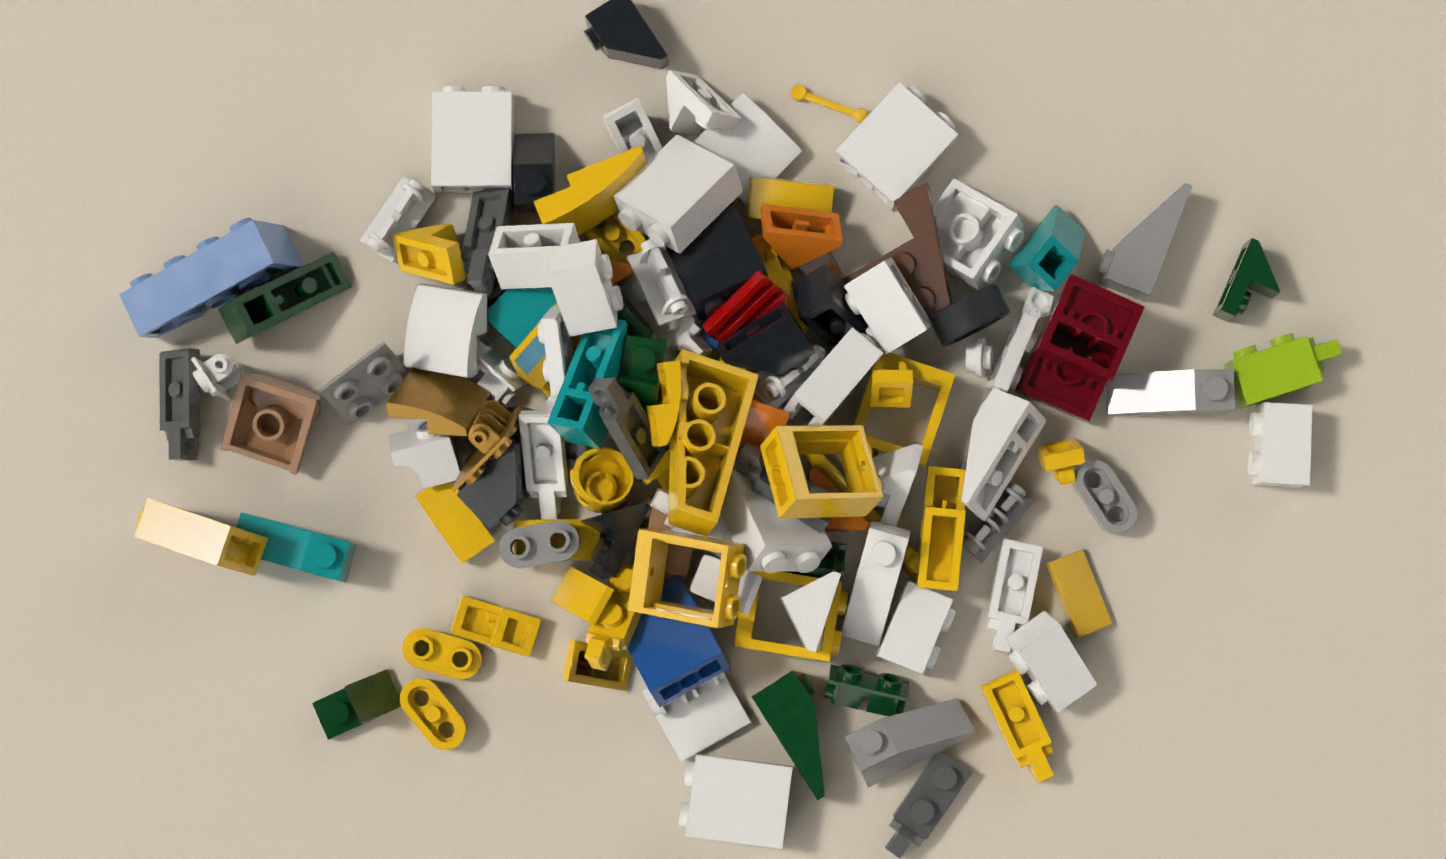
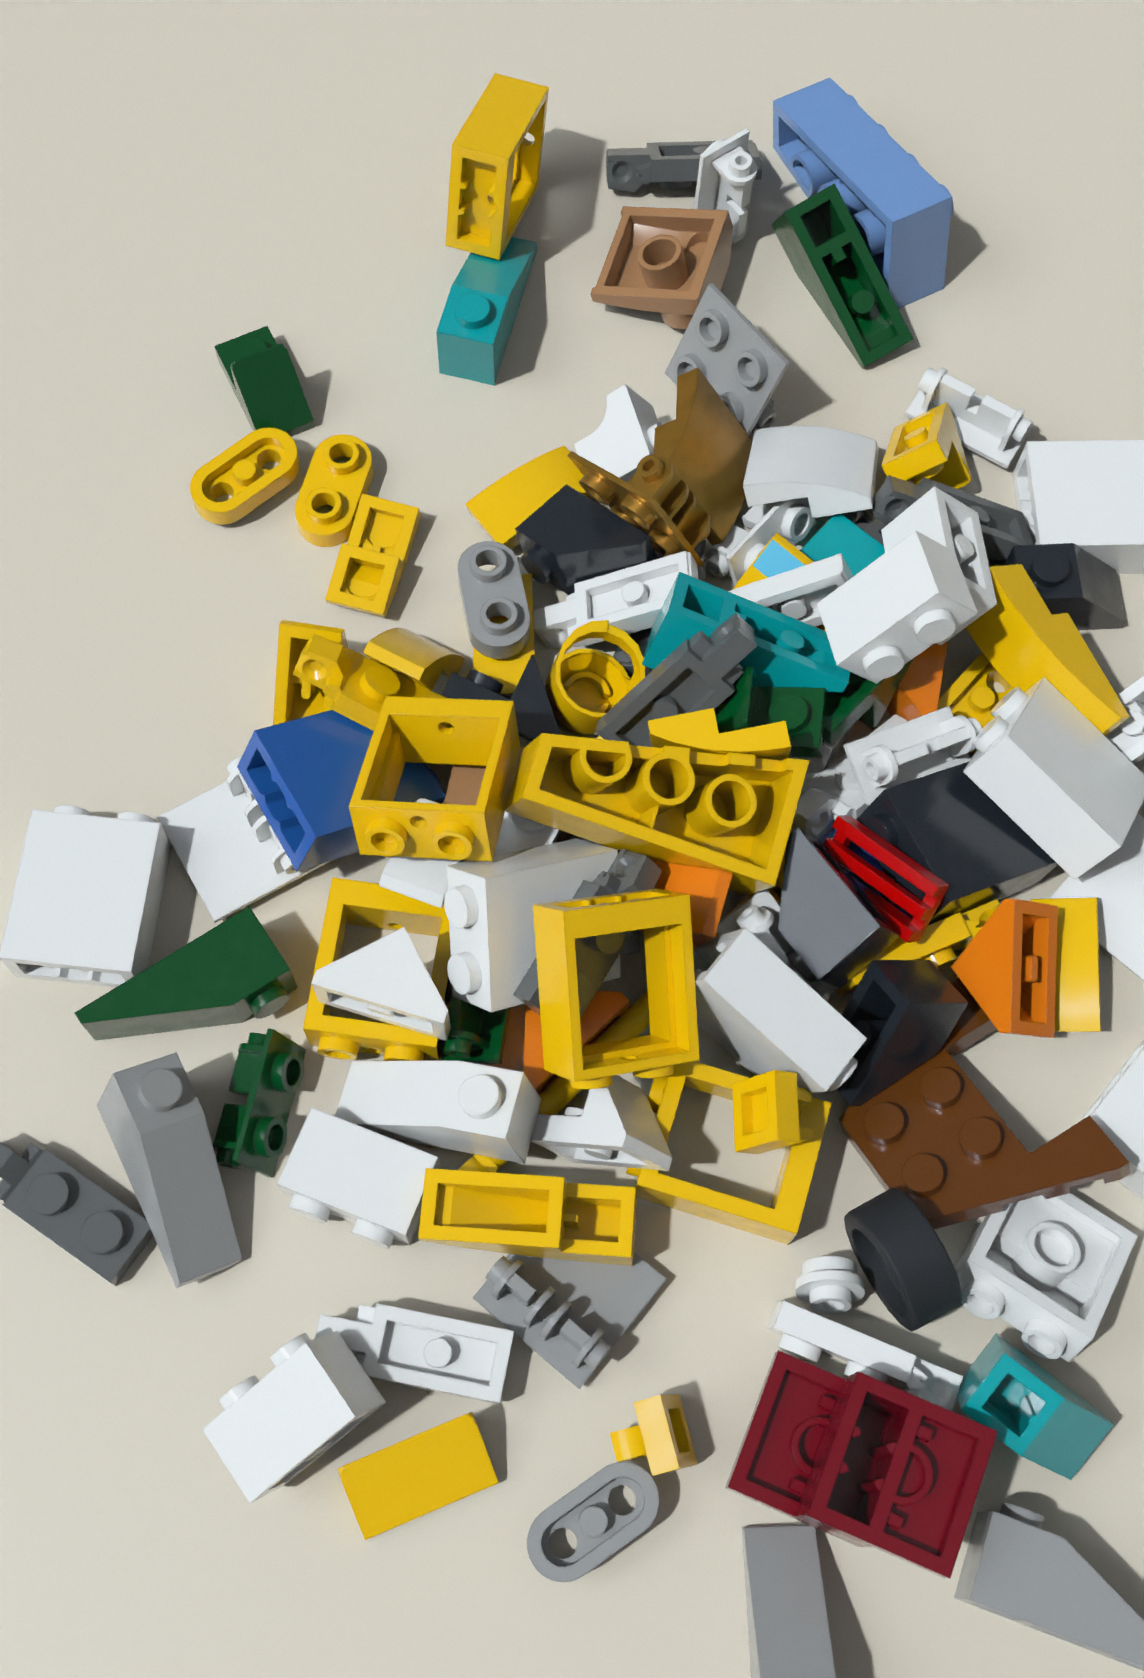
camera: 90 degrees right, 15 degrees down
(887, 306) = (908, 1108): white brick -> none
(997, 446) = (669, 1310): white slope -> none
(1019, 723) = (188, 1366): yellow hinge -> none

